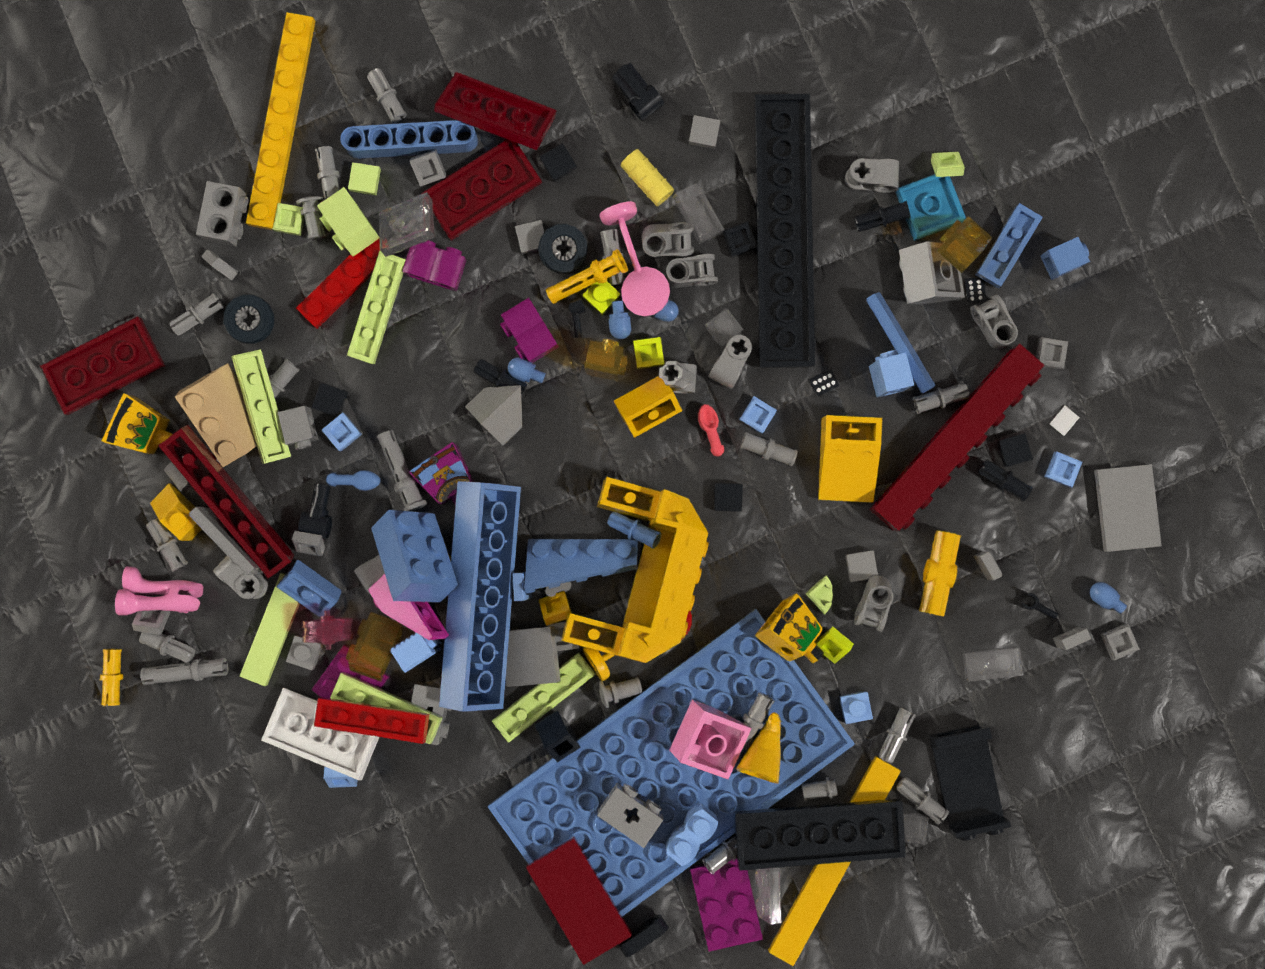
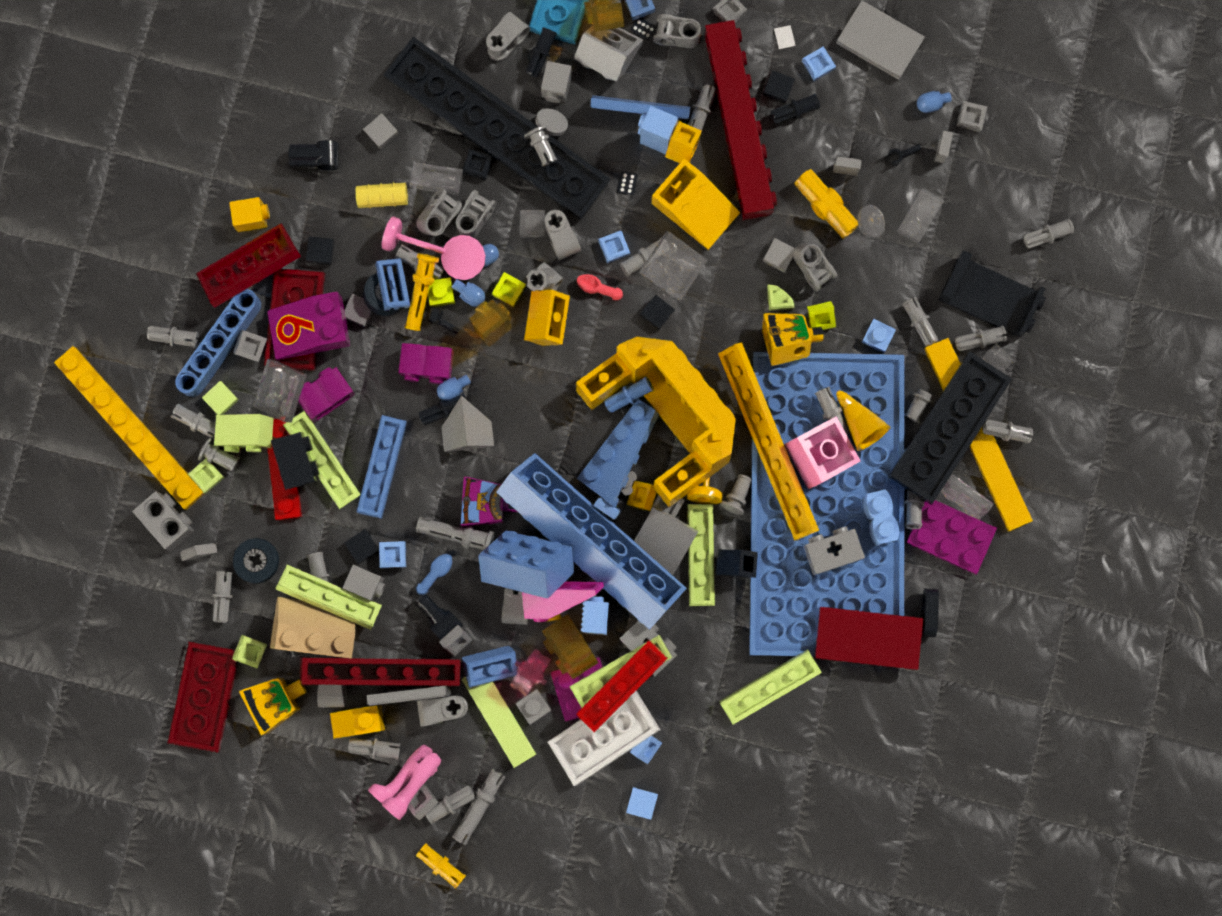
camera: 50 degrees left, 5 degrees down
(168, 374) = (249, 651): none -> yellowish green tile
(292, 808) = (642, 803): none -> light blue tile
(354, 286) = (295, 460): none -> black brick
(411, 363) = (381, 467): none -> medium blue tile
(473, 844) = (770, 686): none -> yellowish green tile
(482, 206) = (309, 326): none -> magenta slope
(541, 76) = (249, 214): none -> yellow brick
(558, 266) = (396, 304): none -> medium blue tile
(684, 684) = (768, 441): none -> yellow plate
(778, 481) = (673, 266): none -> clear plate
(798, 282) = (541, 144): none -> light grey pin
(826, 274) = (554, 120): none -> light grey piece
(856, 886) = (1007, 431): none -> light grey axle
(866, 251) = (556, 82): none -> light grey brick
(896, 405) = (683, 143): none -> yellow brick
(954, 624) = (871, 221): none -> clear piece
(1064, 790) = (1048, 233): none -> light grey axle

